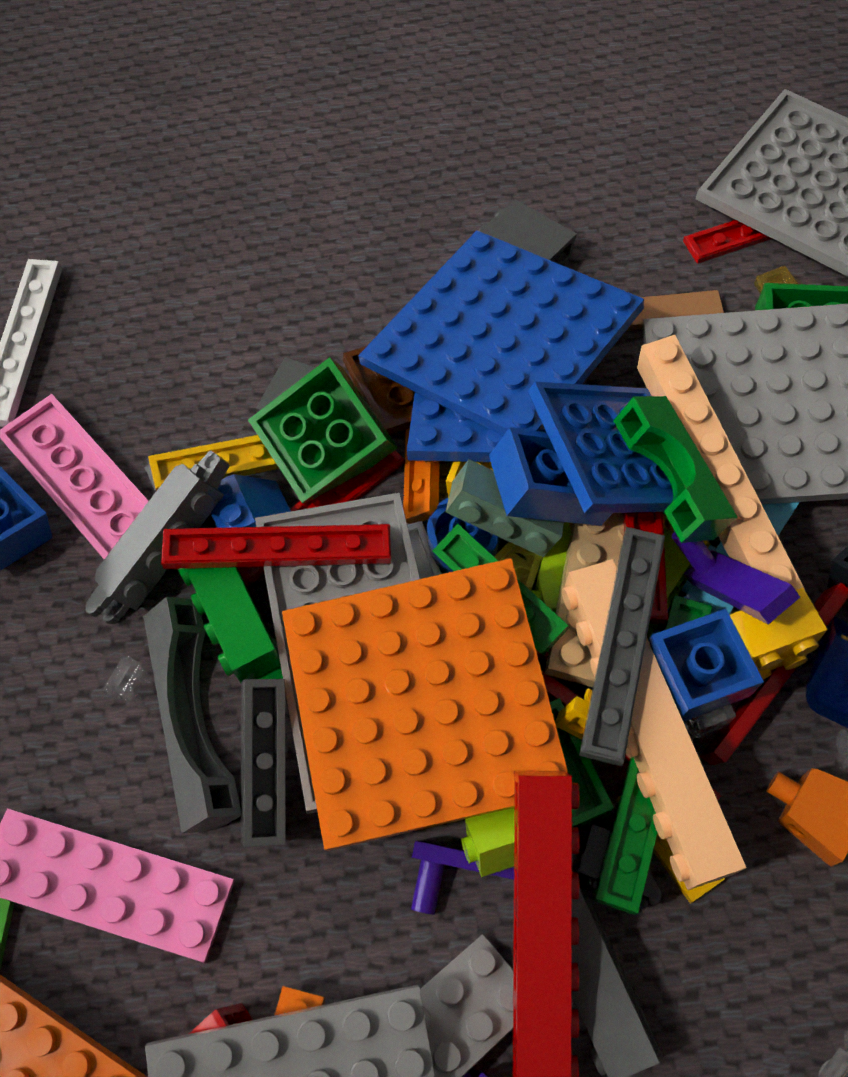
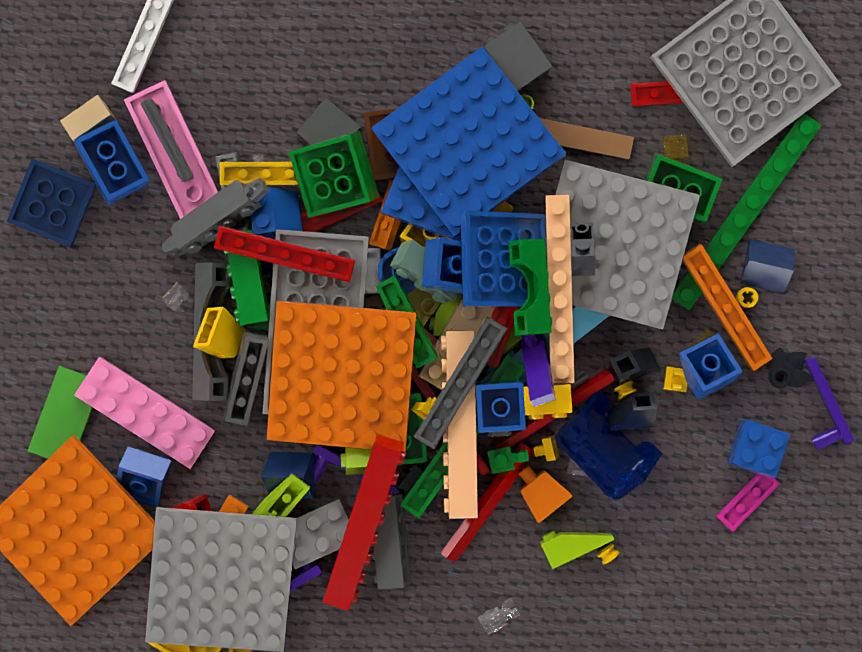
camera: 15 degrees right, 25 degrees up
(68, 462) = (167, 140): none -> dark grey axle
(119, 1000) = (143, 475): none -> blue slope
(203, 707) = (219, 334): none -> yellow torso
(384, 918) = (283, 464): none -> dark blue slope
(385, 952) = (283, 498): none -> lime slope
(732, 407) = (582, 249): none -> black slope
(732, 890) = (485, 507): none -> red tile
(738, 766) = (503, 458): none -> green plate
(796, 733) = (548, 448): none -> yellow tile

